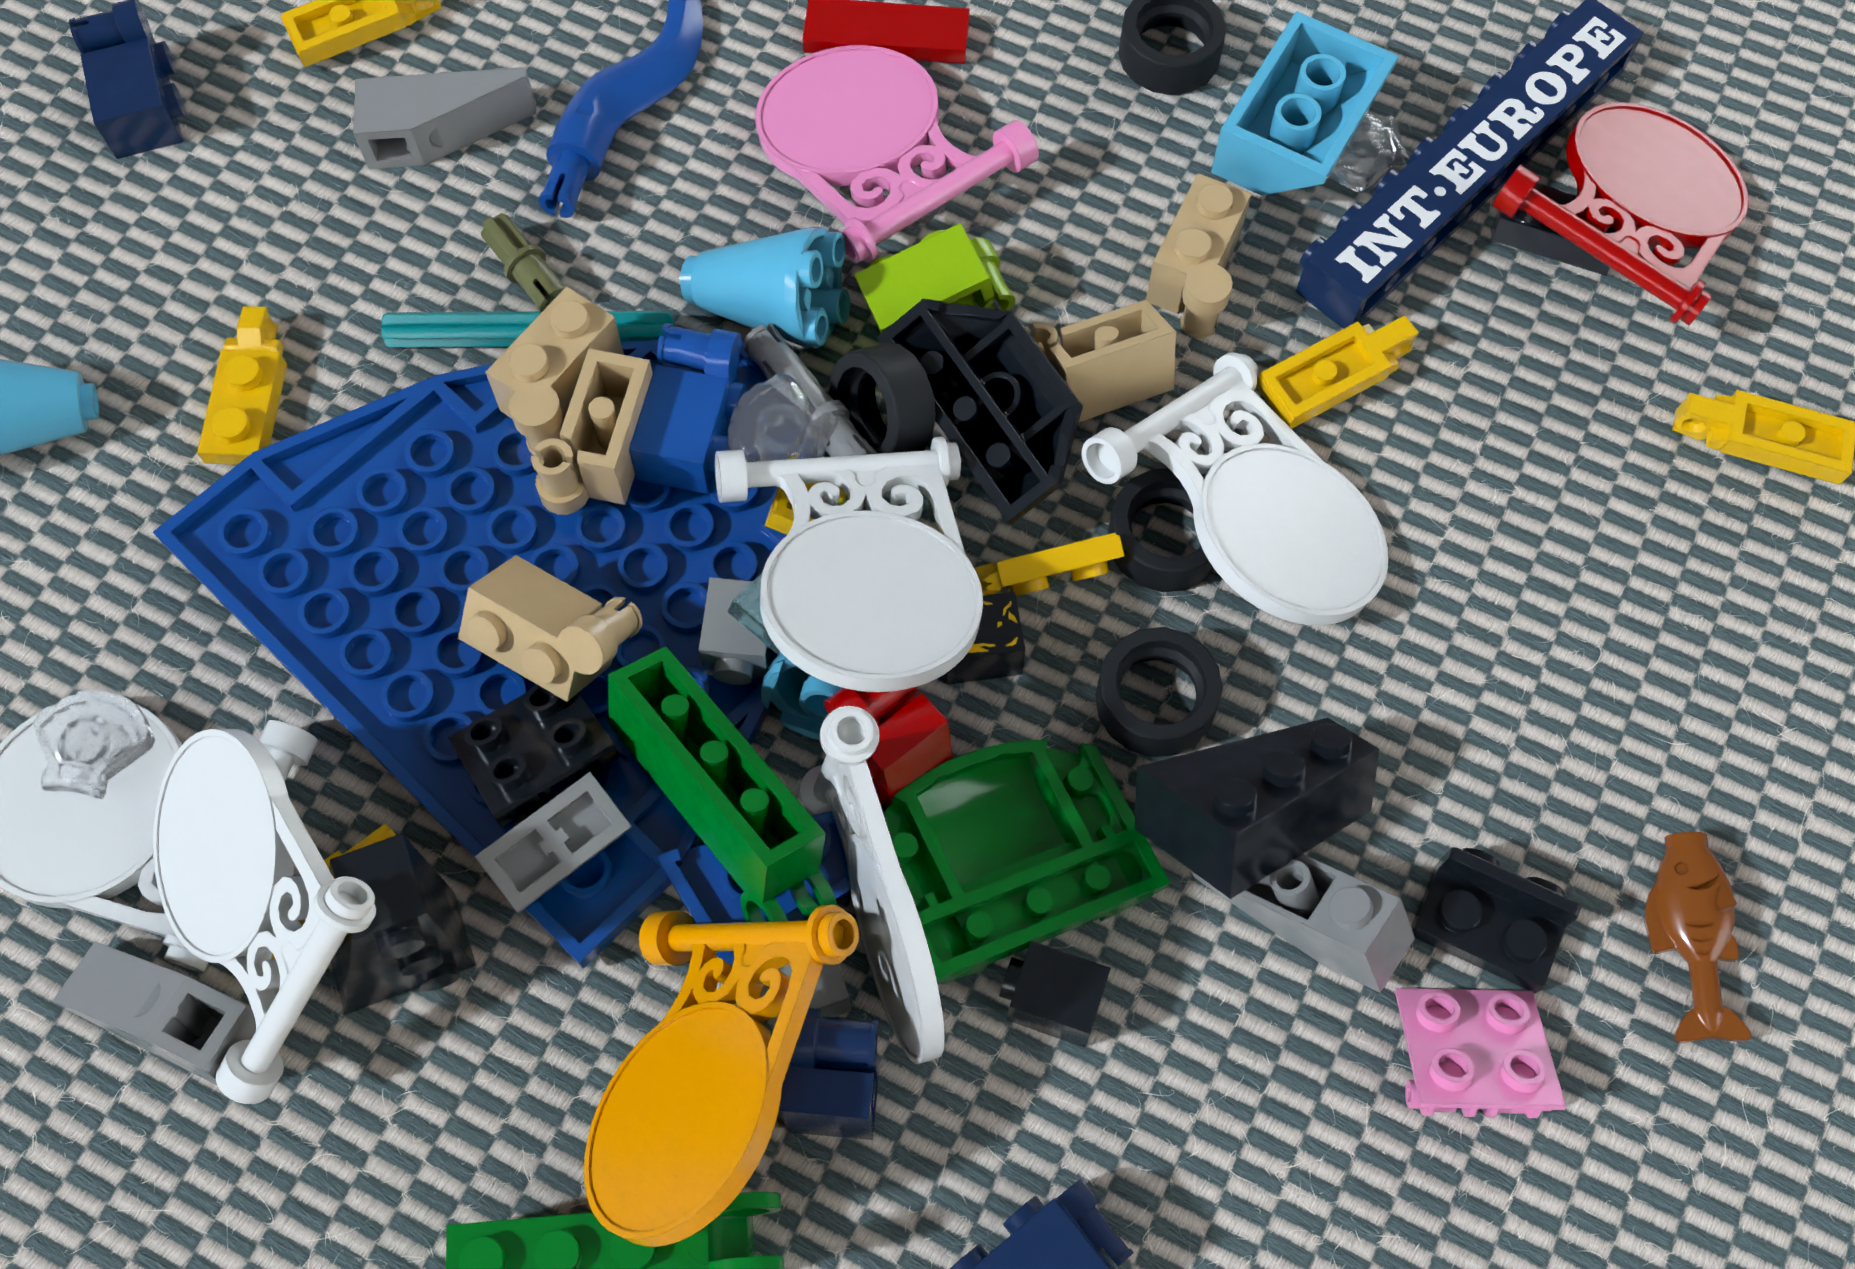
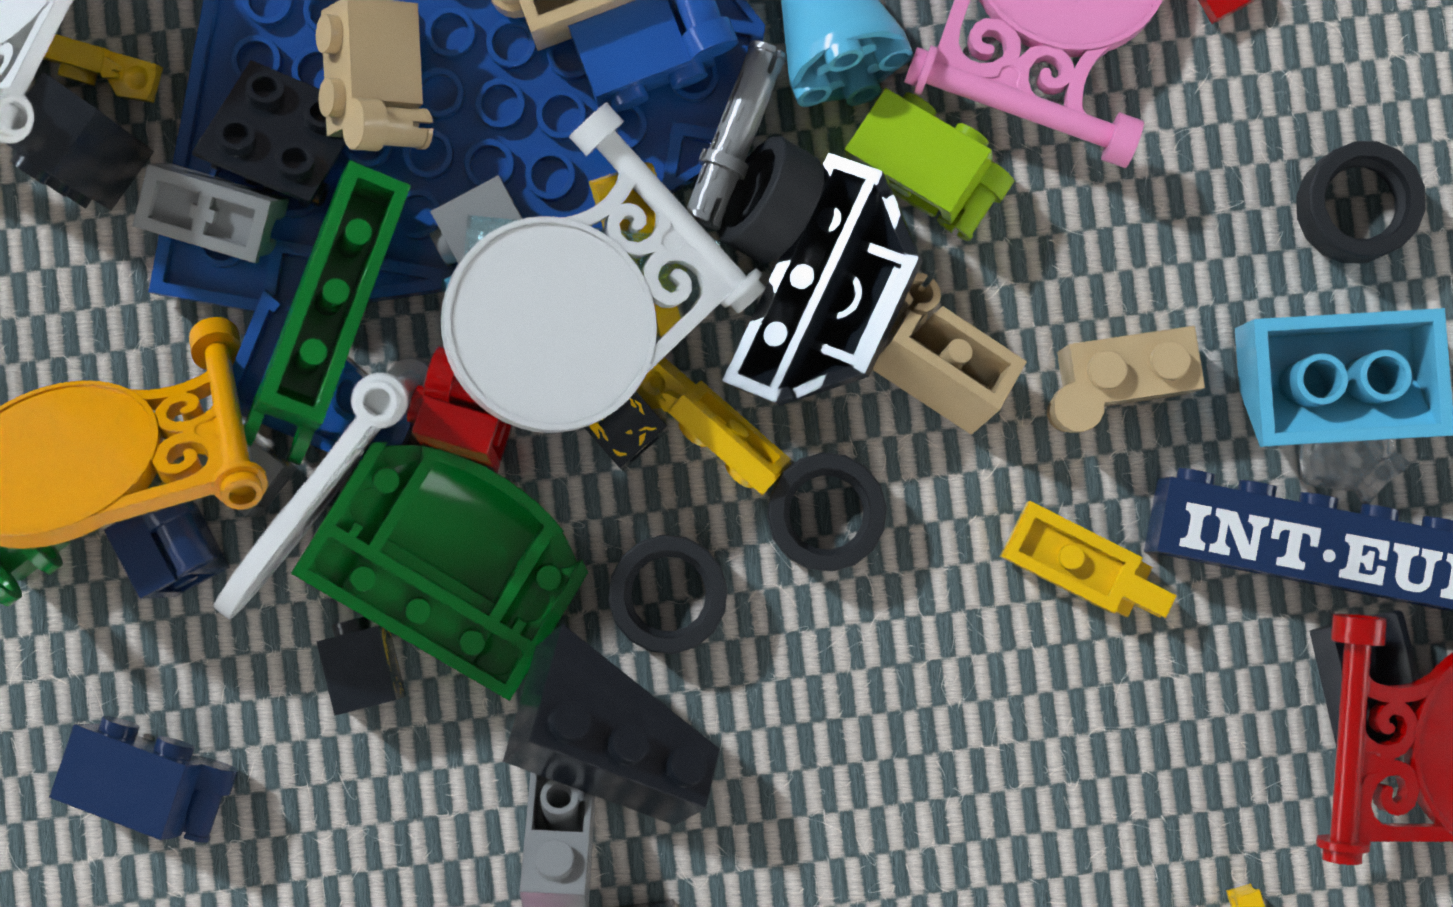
camera: 55 degrees right, 20 degrees up
(779, 423) = (679, 132): clear animal -> none
(1265, 514) = (886, 604): white piece -> none

